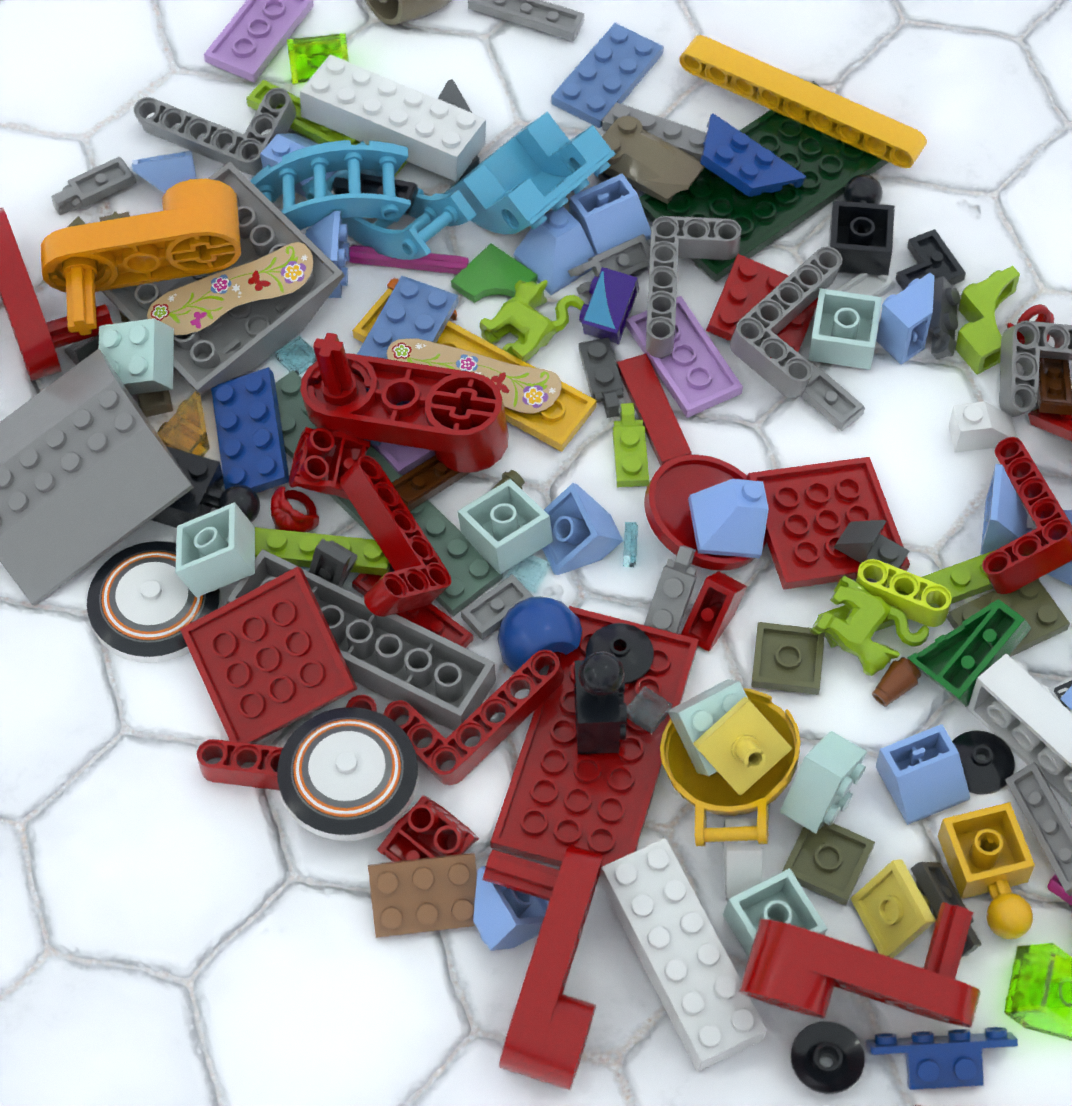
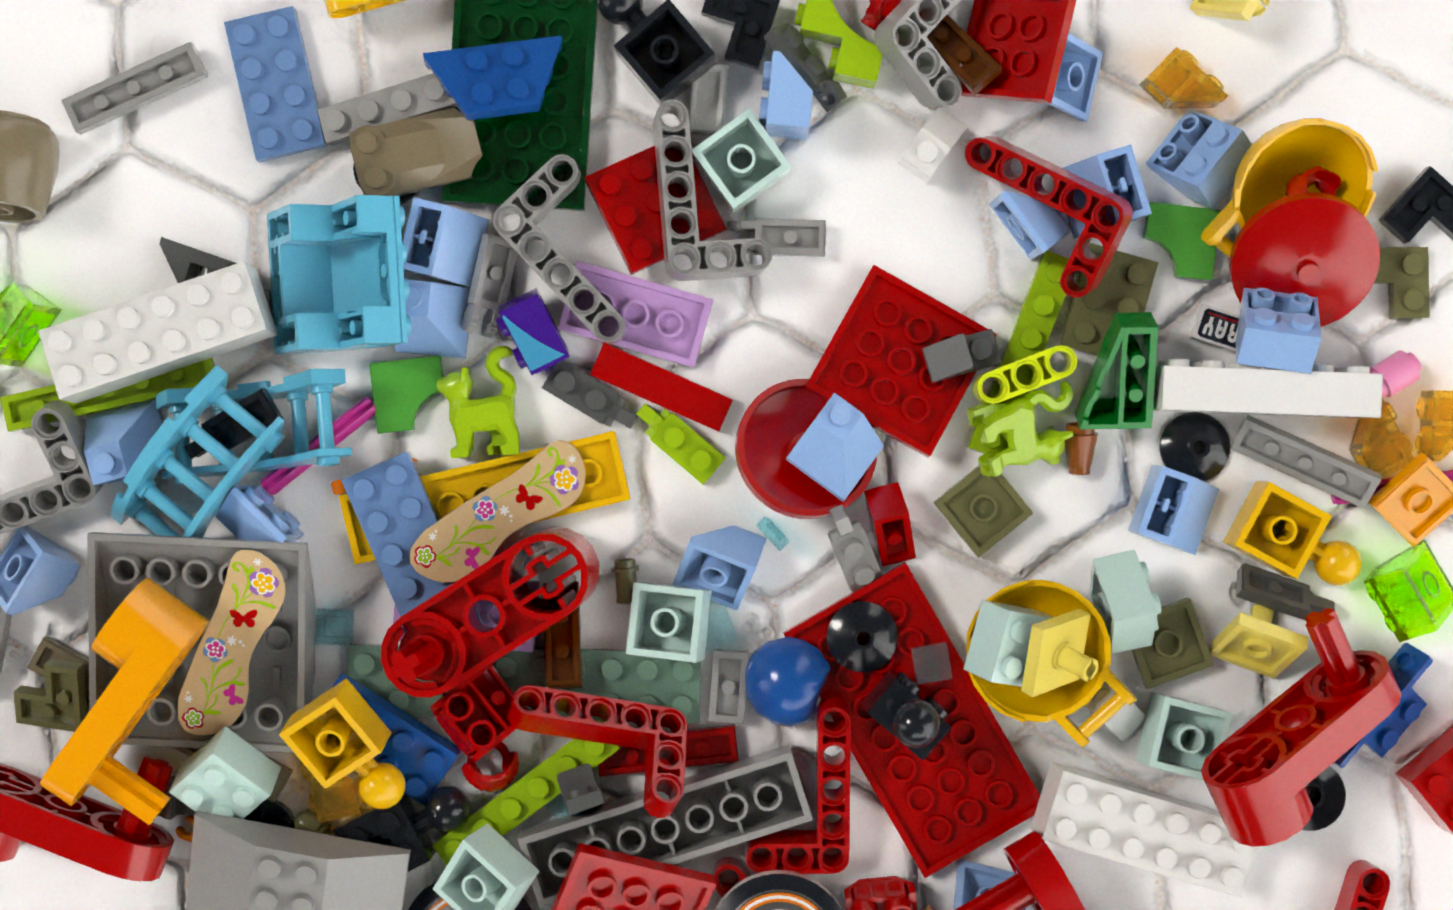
camera: 50 degrees left, 30 degrees up
(230, 386) = (344, 735): none -> yellow brick

